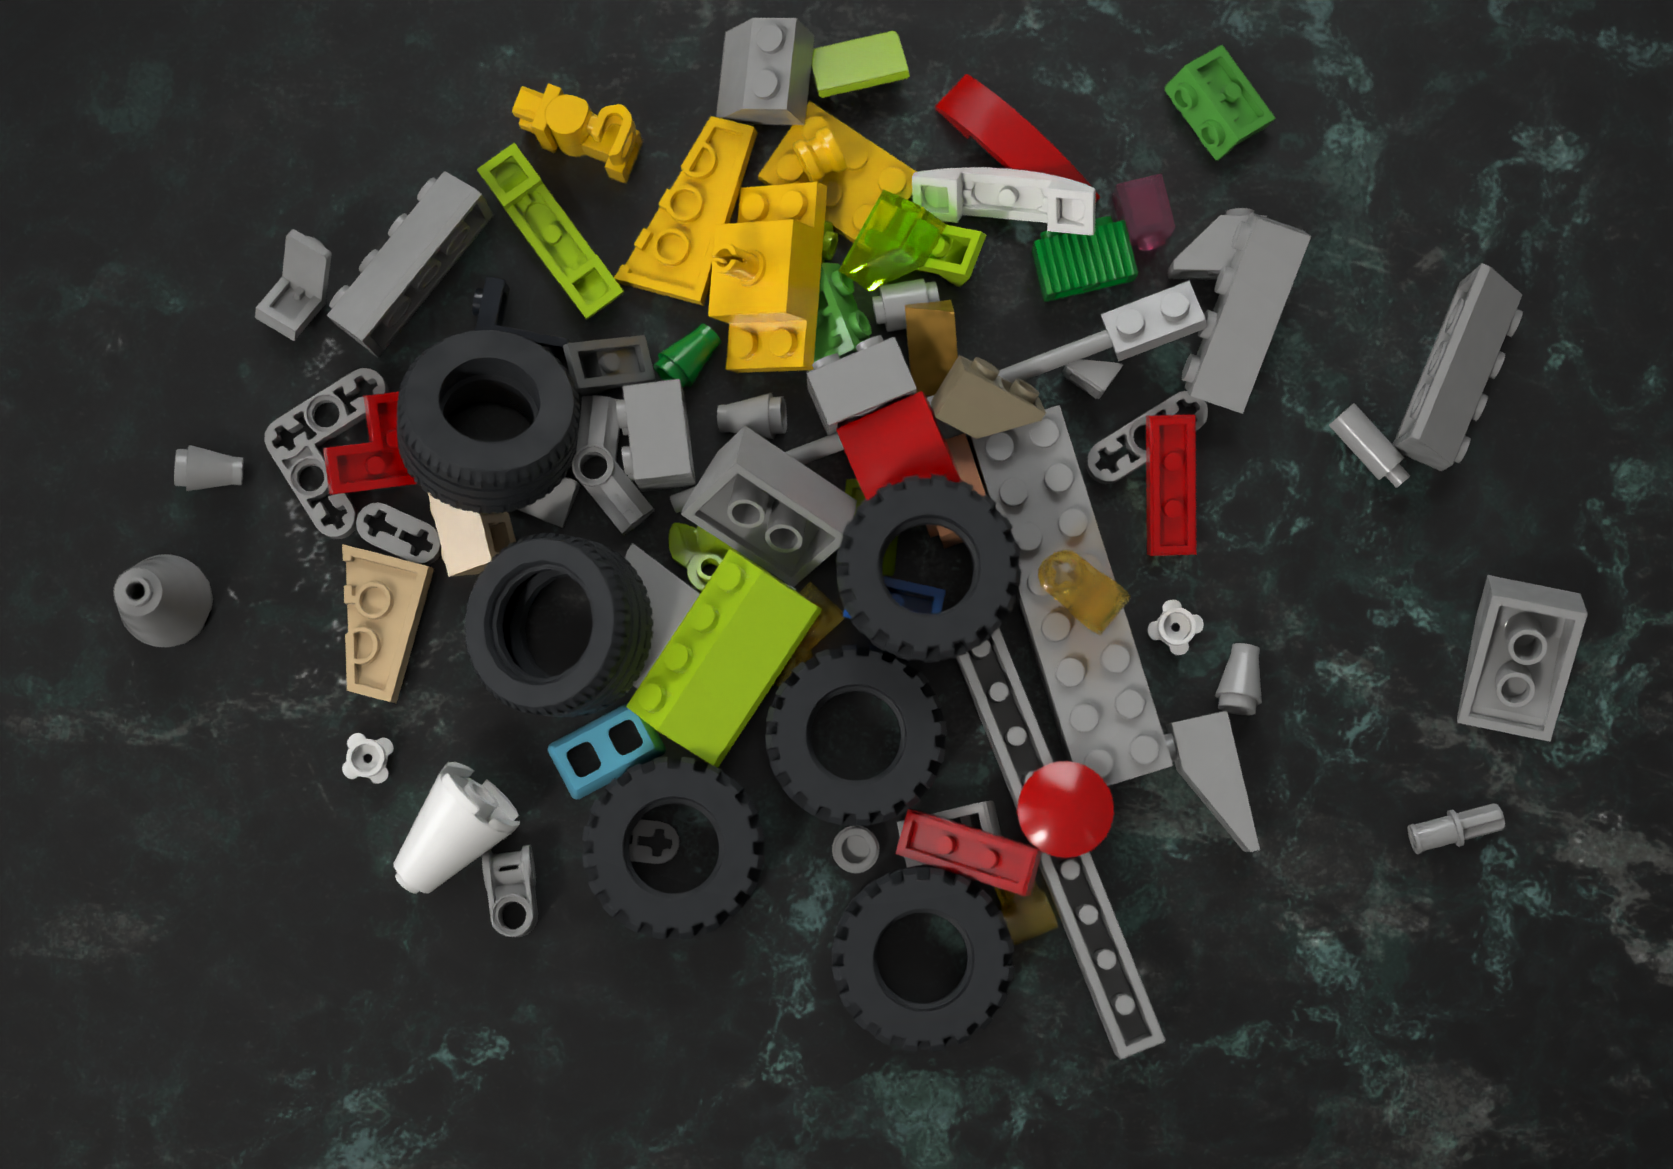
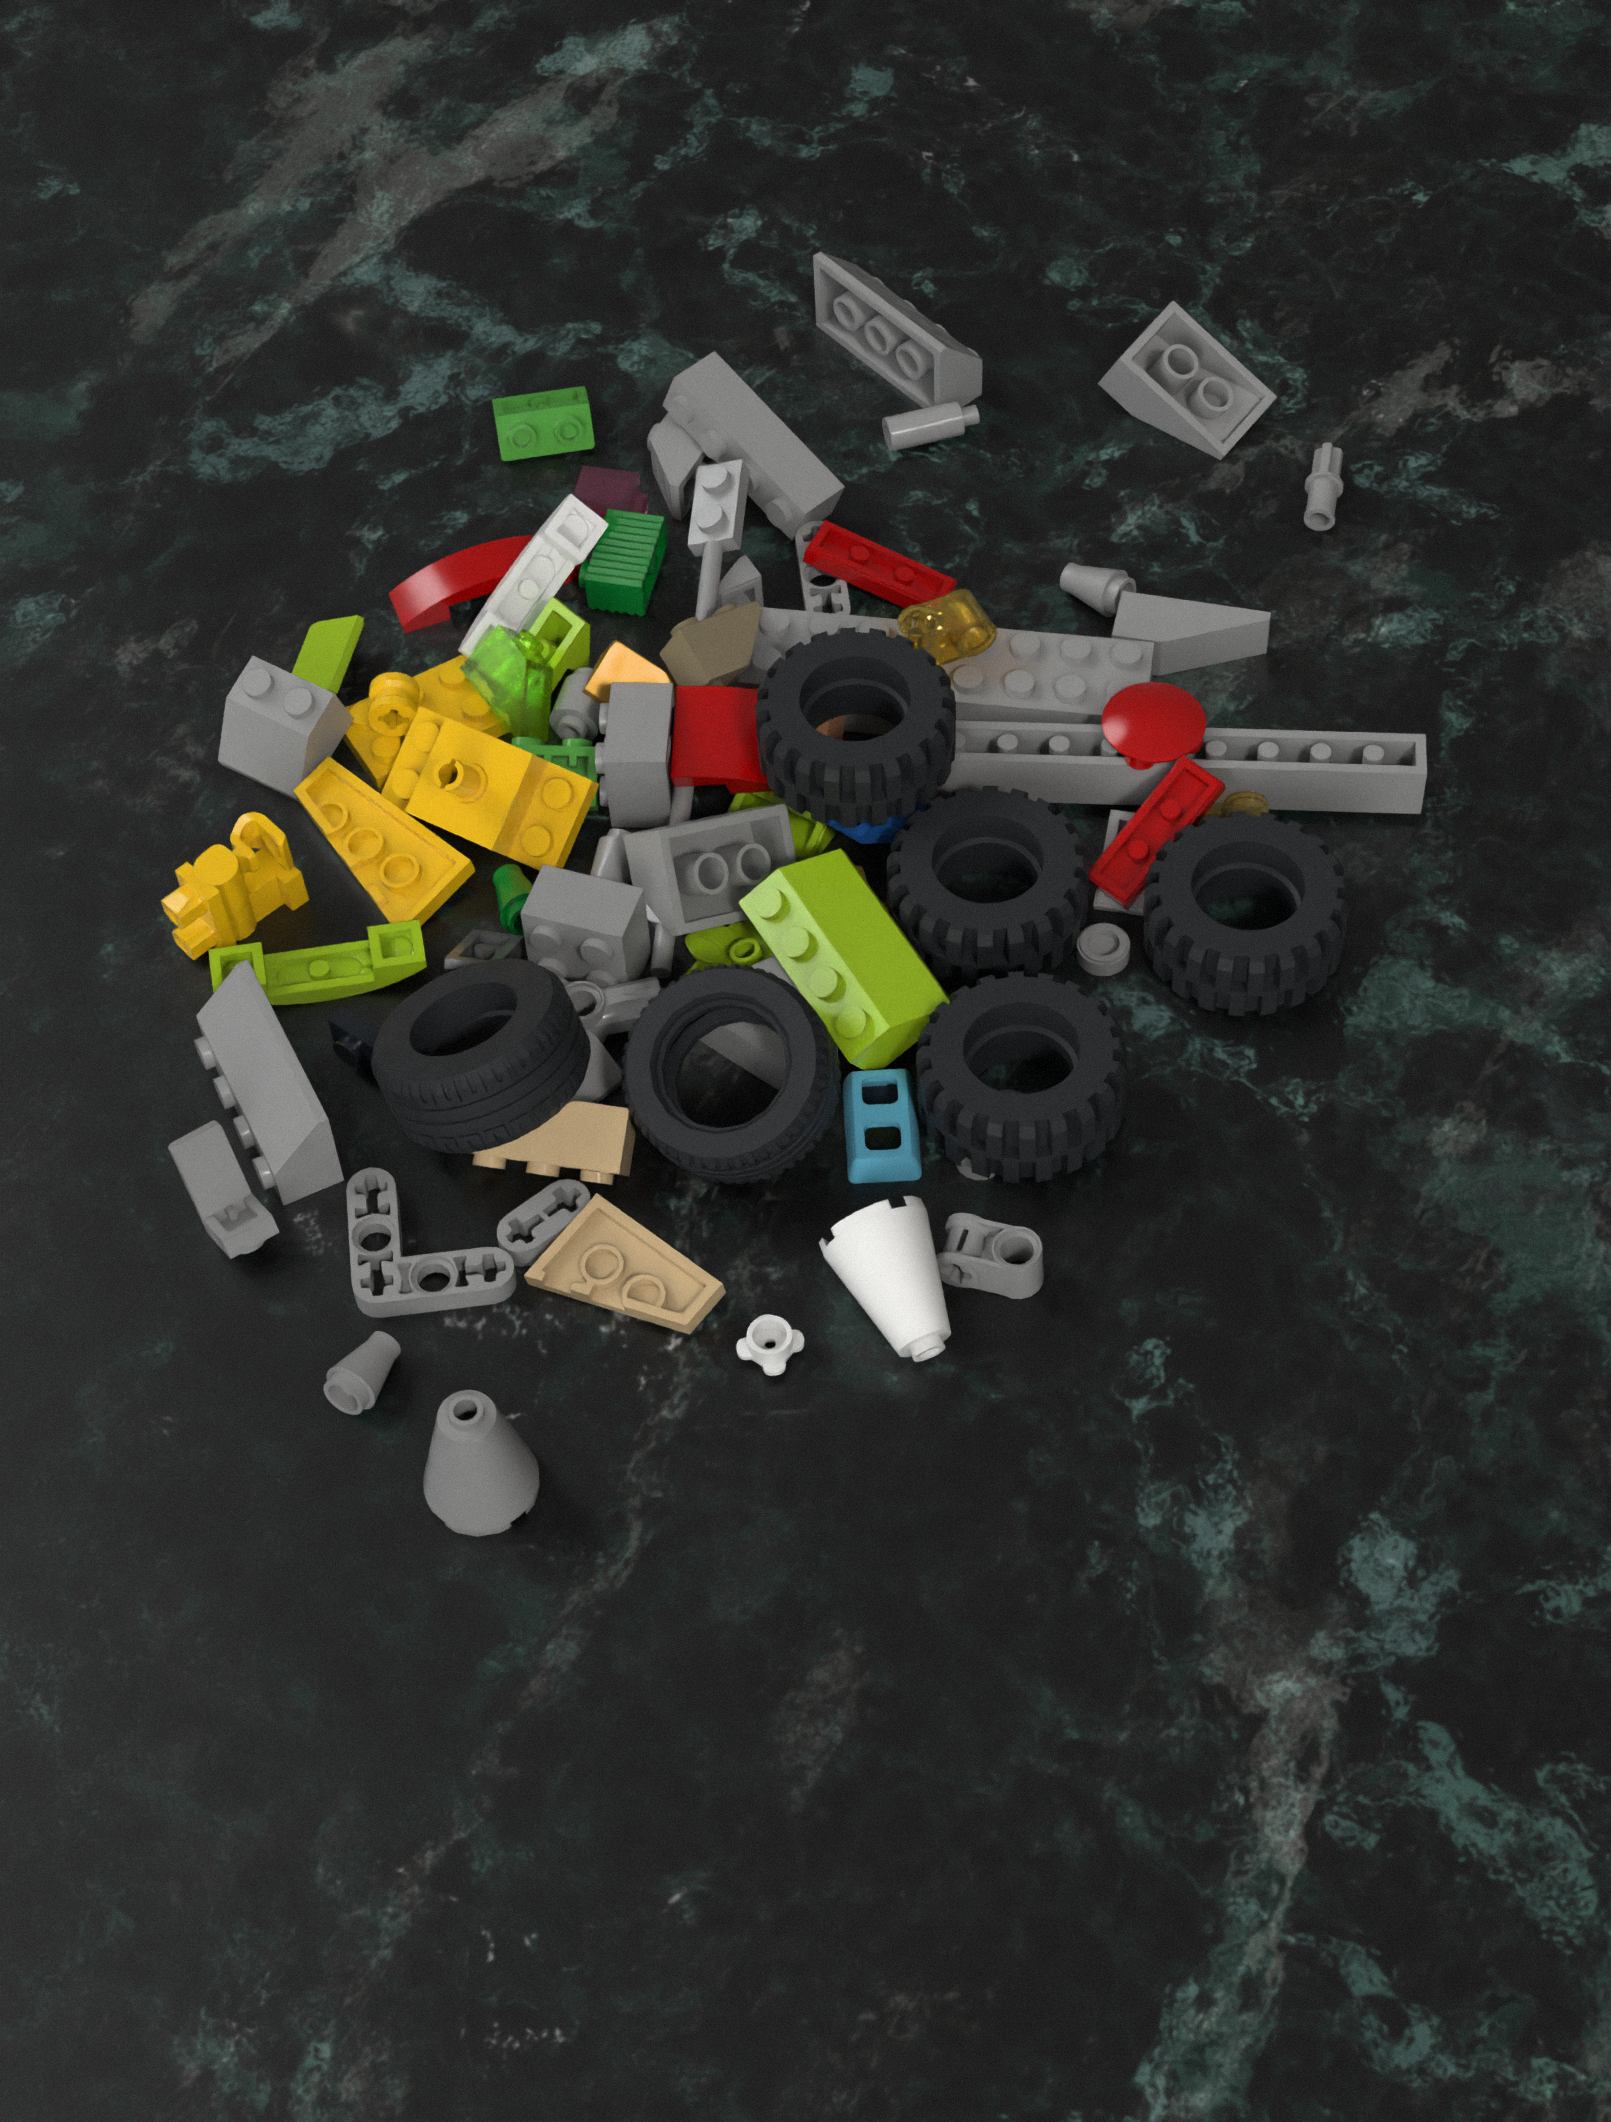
camera: 60 degrees left, 30 degrees down
(370, 463) = (454, 1191): red plate -> none
(1188, 624) = (1019, 614): white plate -> none

